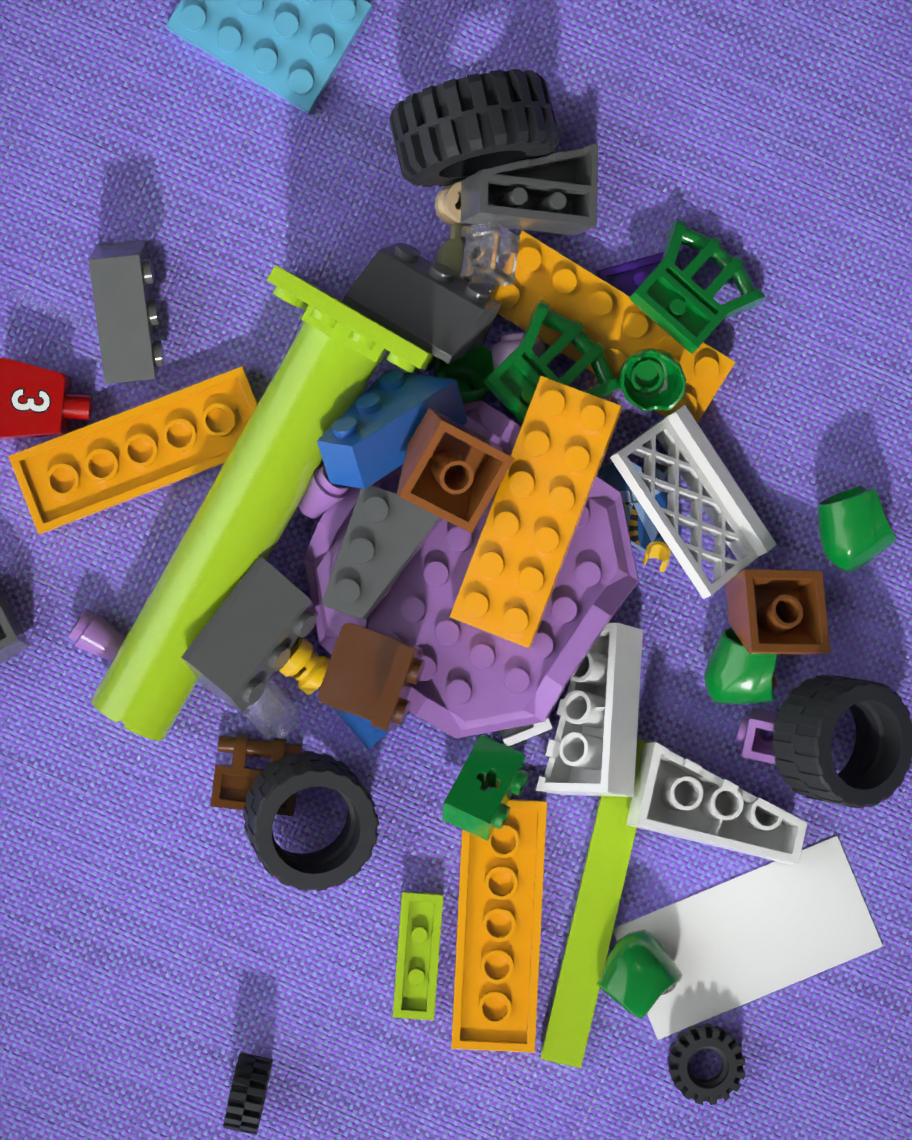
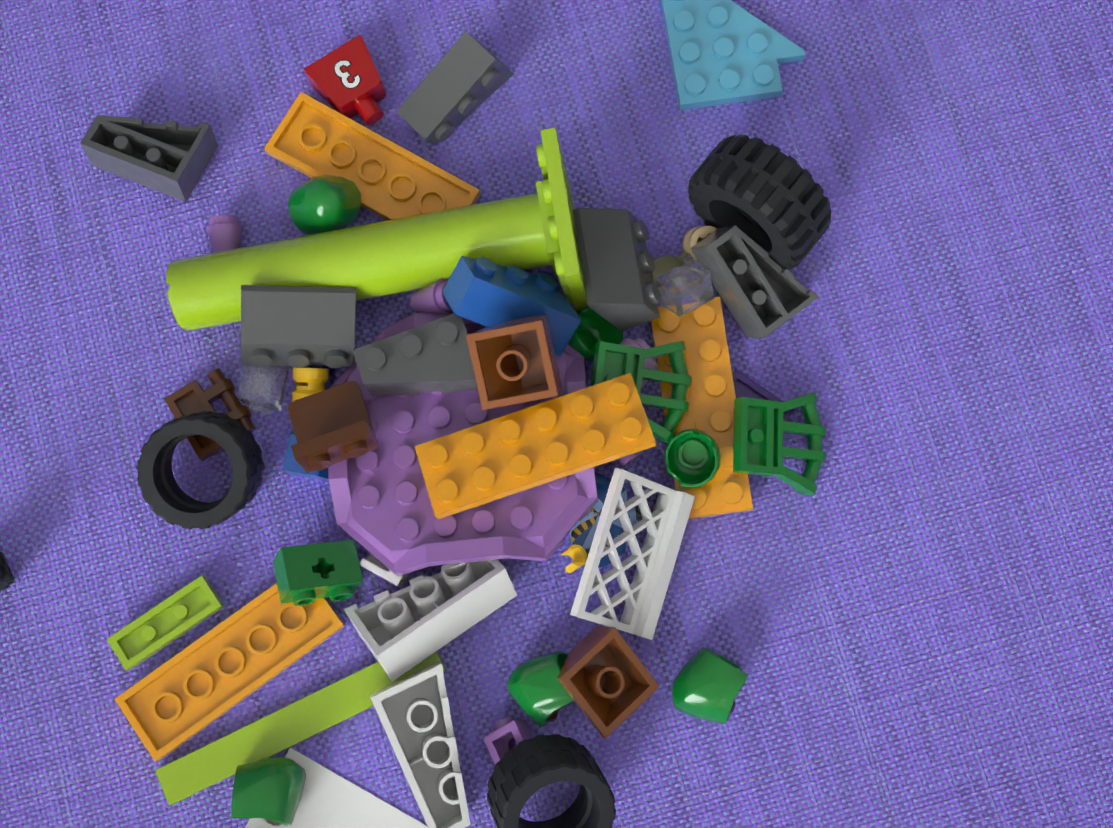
camera: 50 degrees right, 10 degrees down
(144, 520) = (324, 204): none -> green piece

